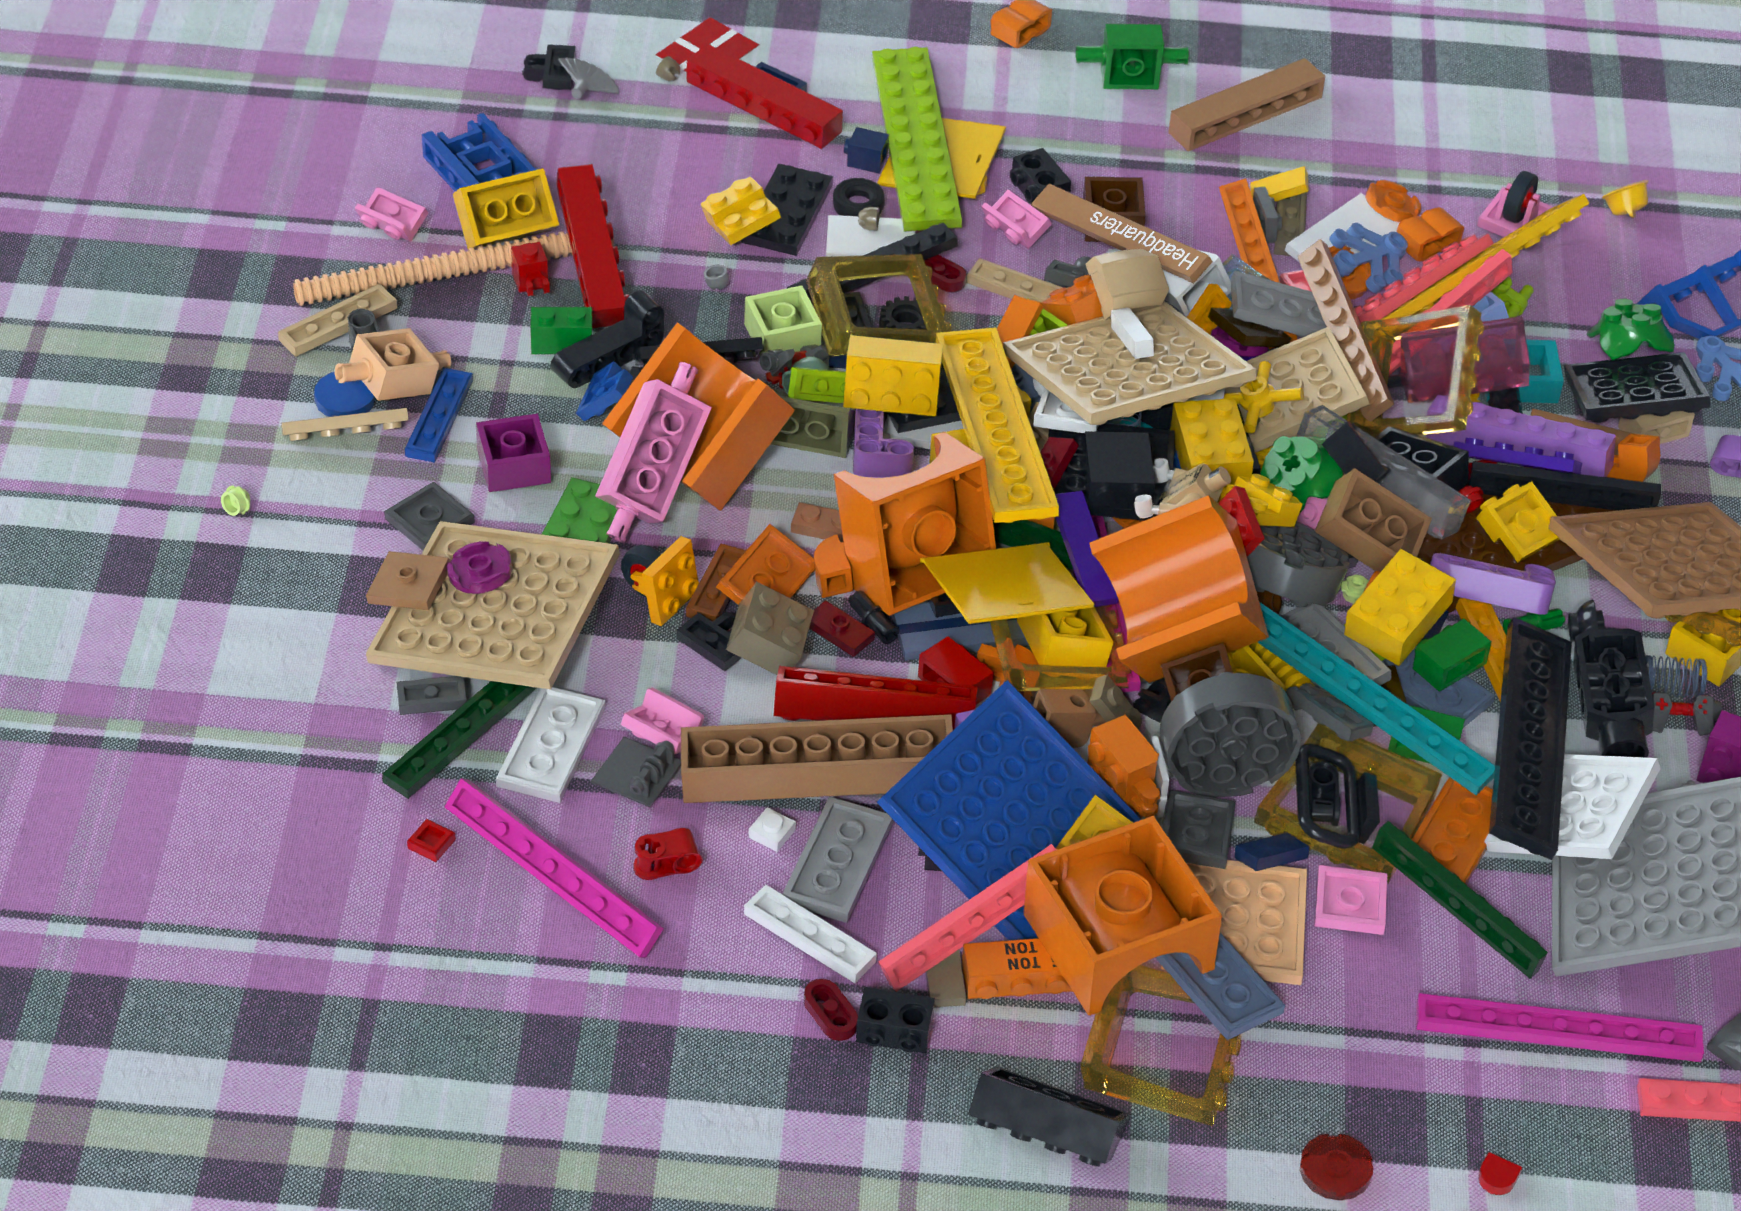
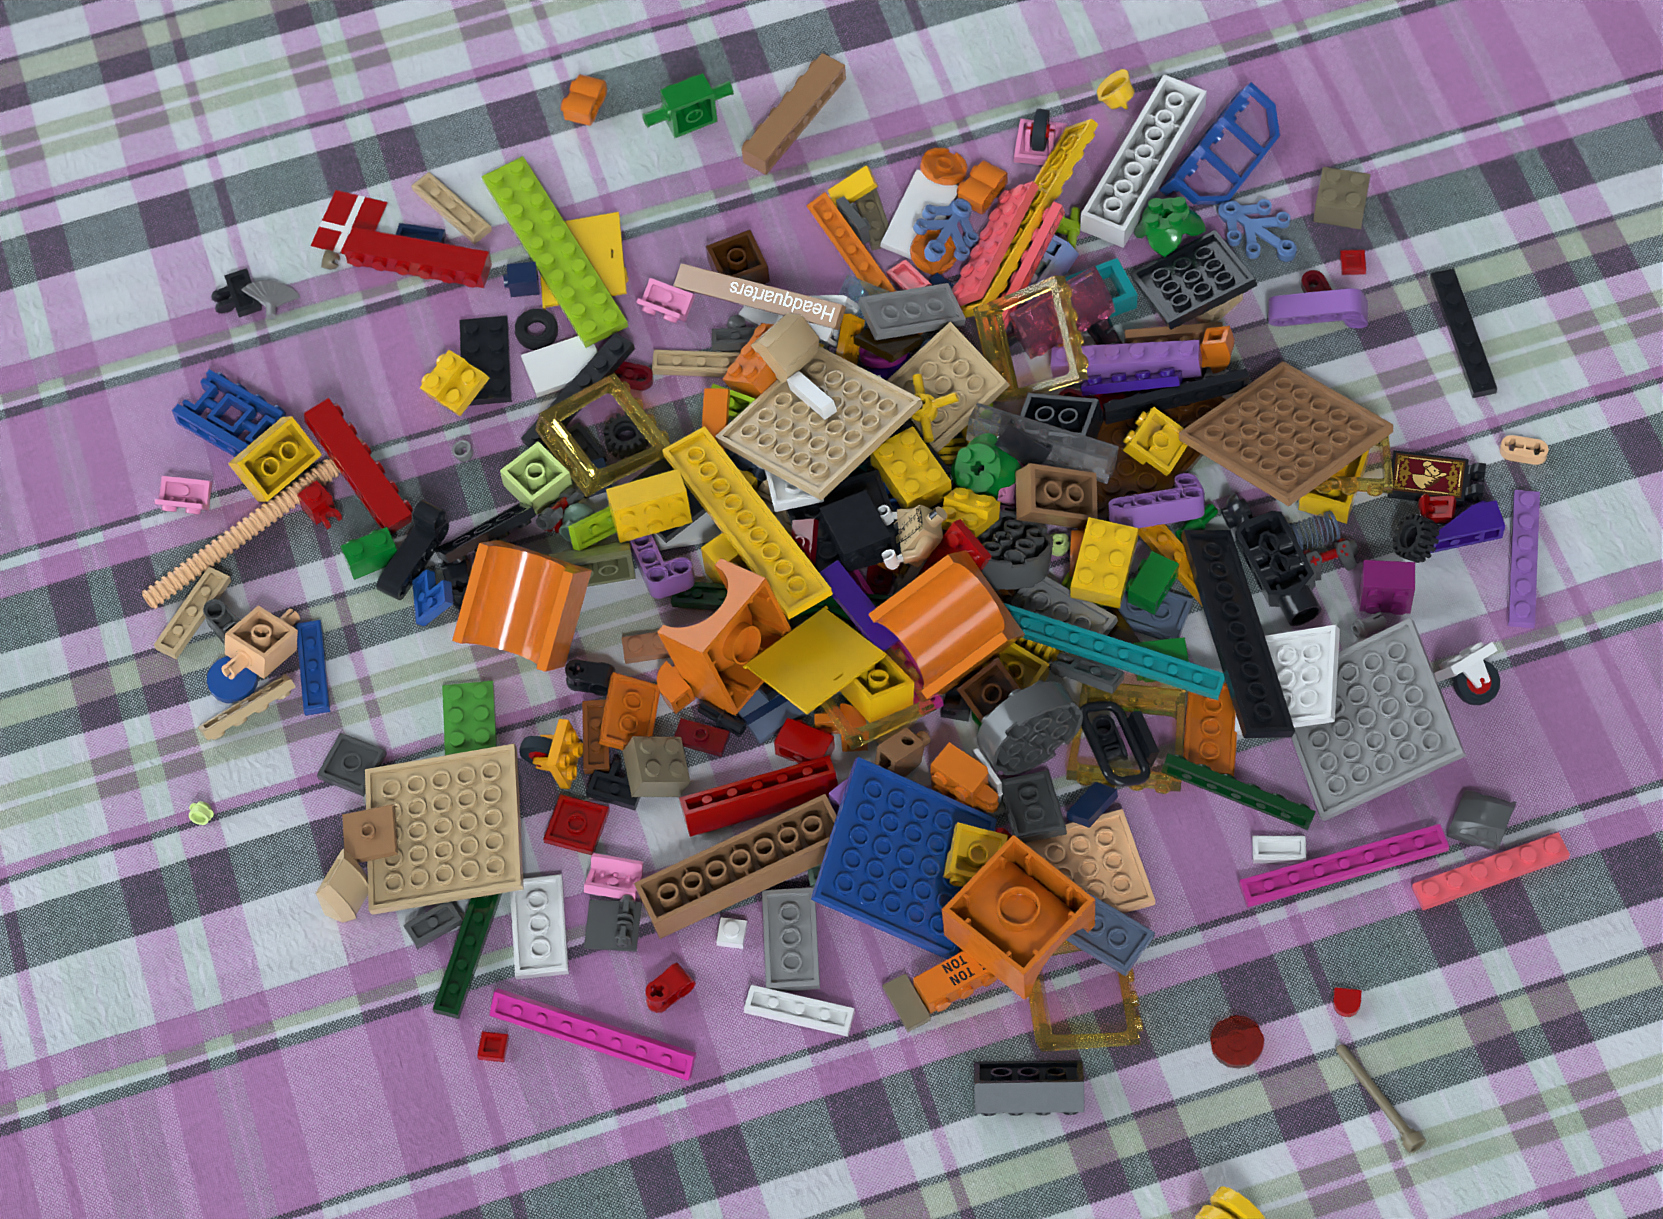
camera: 15 degrees left, 15 degrees up
(347, 619) = (343, 889): none -> tan slope
(479, 567) = (419, 803): magenta tile -> none
(513, 452) = (390, 684): magenta brick -> none
(649, 660) = (576, 824): none -> red tile
(653, 452) = (502, 650): bright pink brick -> none
(740, 526) = (591, 677): none -> black piece
(825, 69) = (451, 208): none -> tan tile
(833, 1012) = (842, 1068): dark red plate -> none
(869, 218) = (555, 349): dark tan hinge -> none
(895, 1020) = (888, 1050): black brick -> none
(957, 928) = (909, 962): coral plate -> none
(1036, 170) = (669, 251): black brick -> none
(1111, 702) = (933, 730): dark tan plate -> none
(1344, 323) = (960, 314): medium nougat plate -> none
(1351, 899) = (1161, 820): bright pink plate -> none
(1475, 495) = (1111, 434): red plate -> none
(1483, 982) = (1279, 849): none -> white tile
(1628, 265) = (1143, 161): none -> white brick

